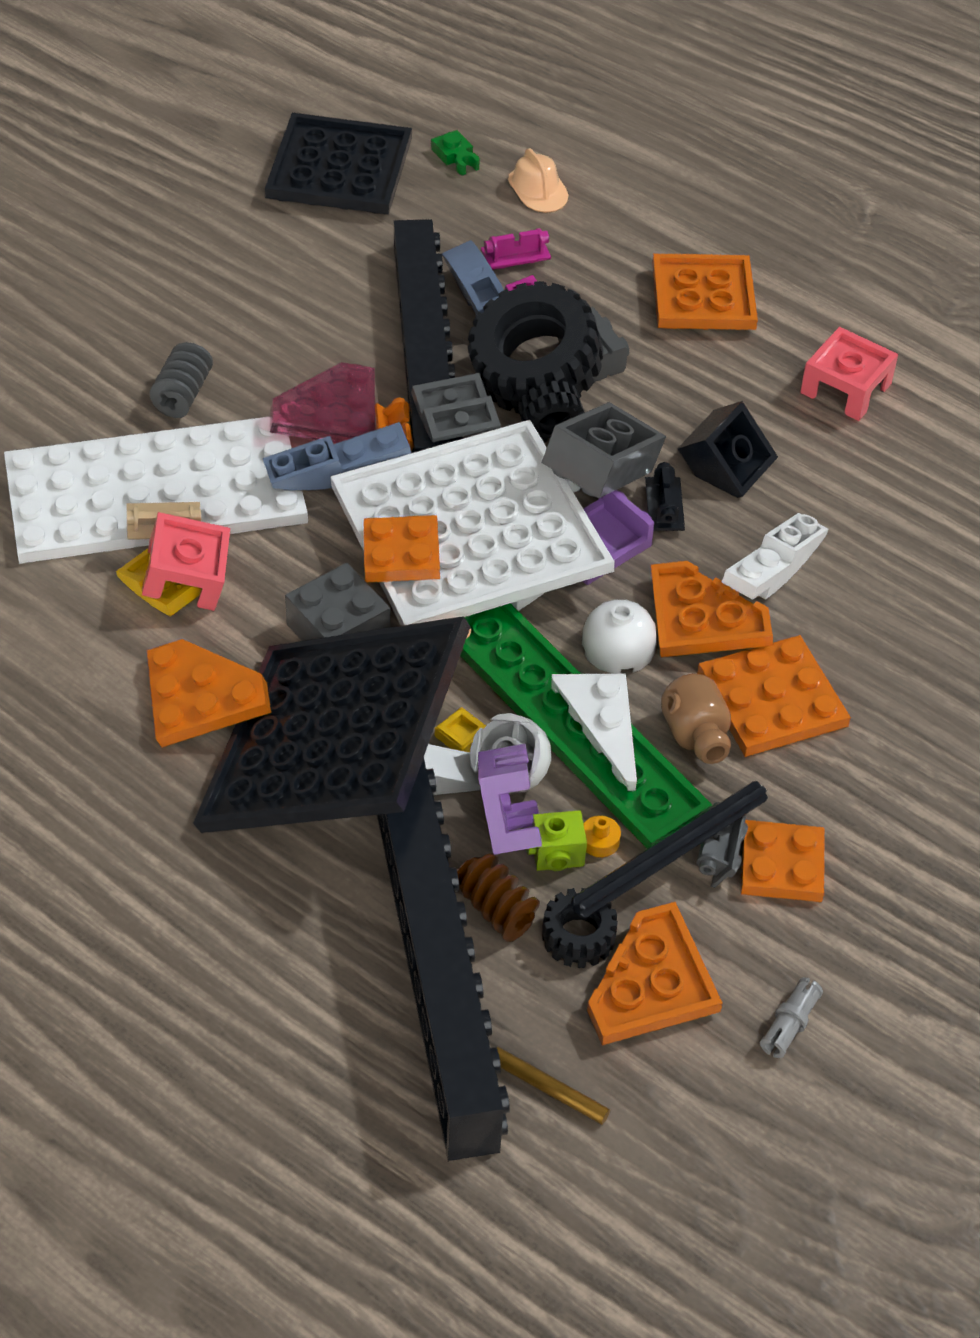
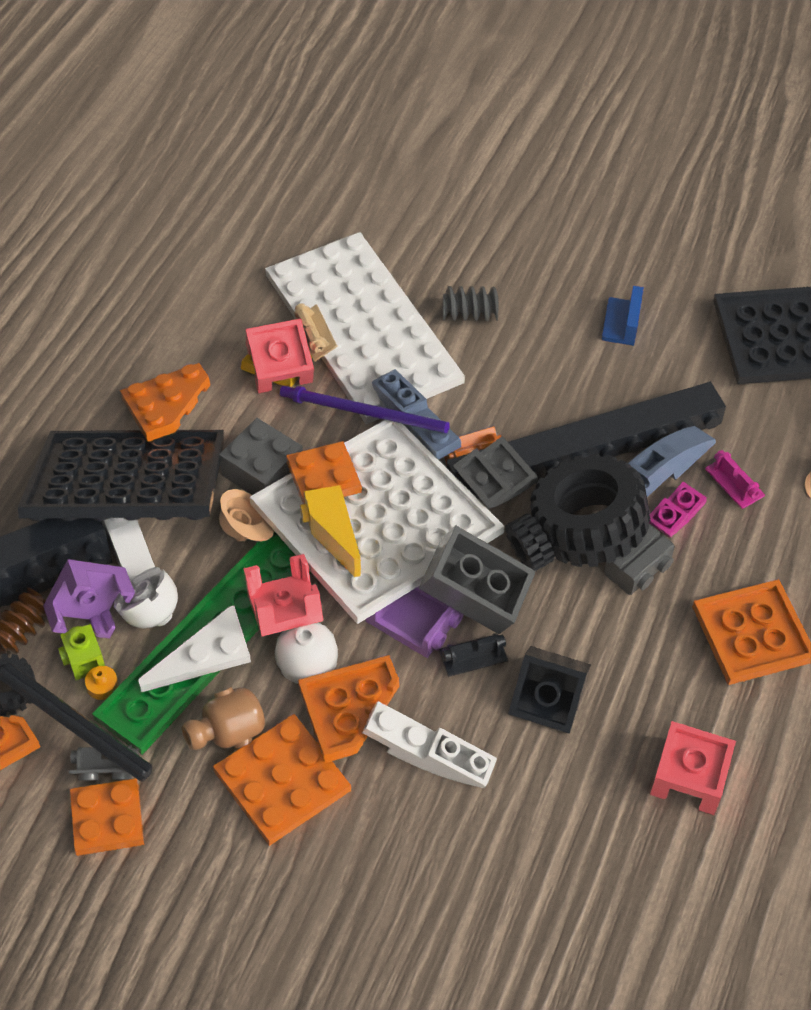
camera: 75 degrees right, 5 degrees up
(245, 564) = (300, 395): none -> dark purple bar
(258, 266) = (623, 318): none -> blue panel
(329, 404) = (484, 399): clear pink plate -> none
(458, 730) = (182, 569): yellow tile -> none
(494, 547) = (331, 525): none -> yellow slope
(565, 624) = (285, 601): none -> coral panel

